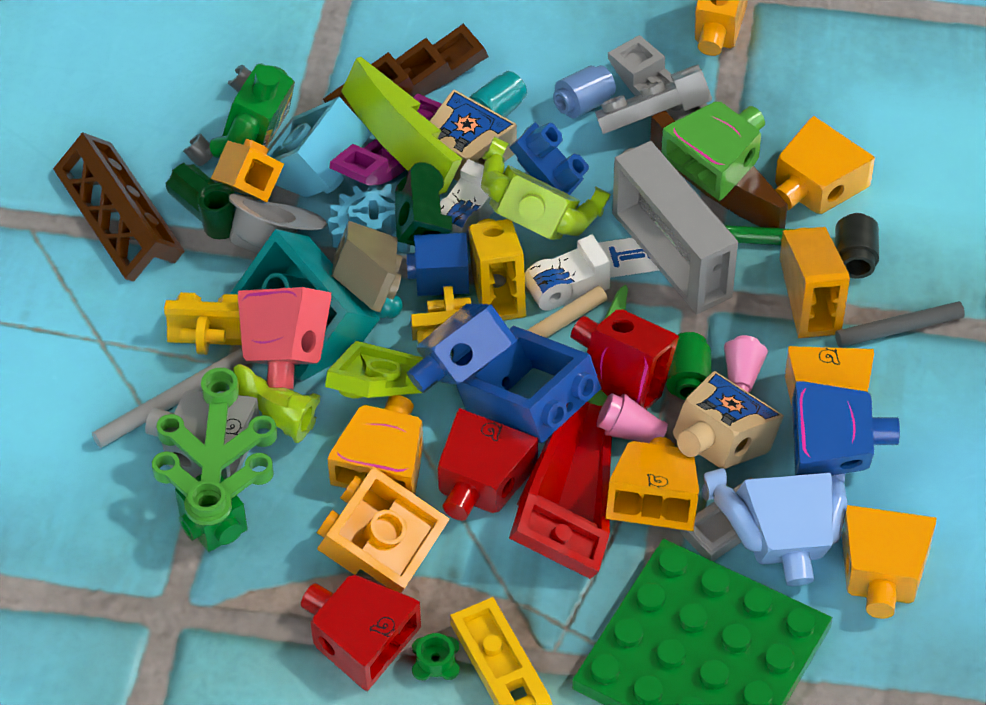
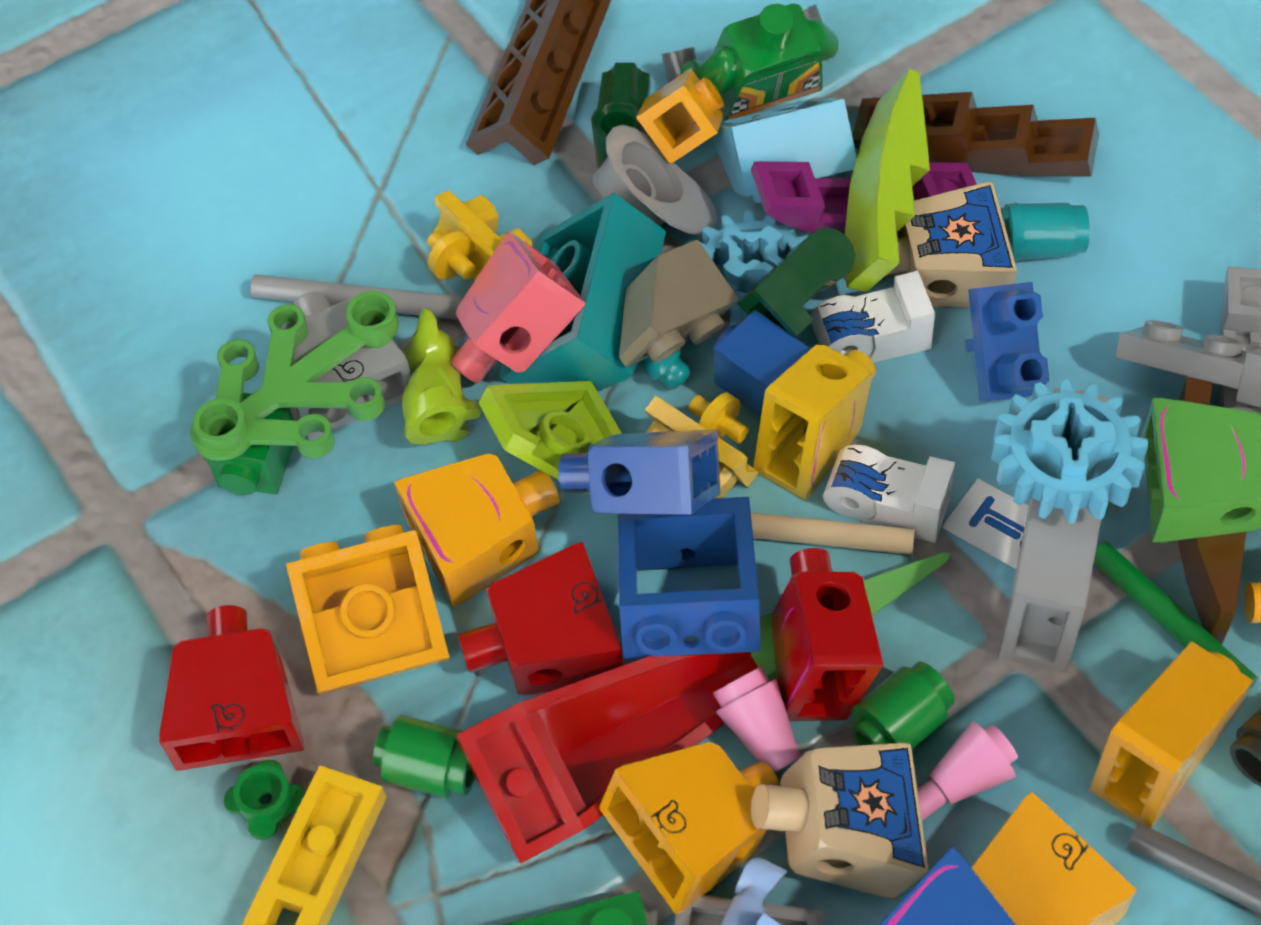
camera: 50 degrees right, 5 degrees up
(495, 568) = (422, 757): none -> green brick
(535, 202) = (927, 371): lime torso -> none
(584, 90) = (1154, 291): medium blue brick -> none
(661, 175) = (1064, 446): none -> medium azure gear

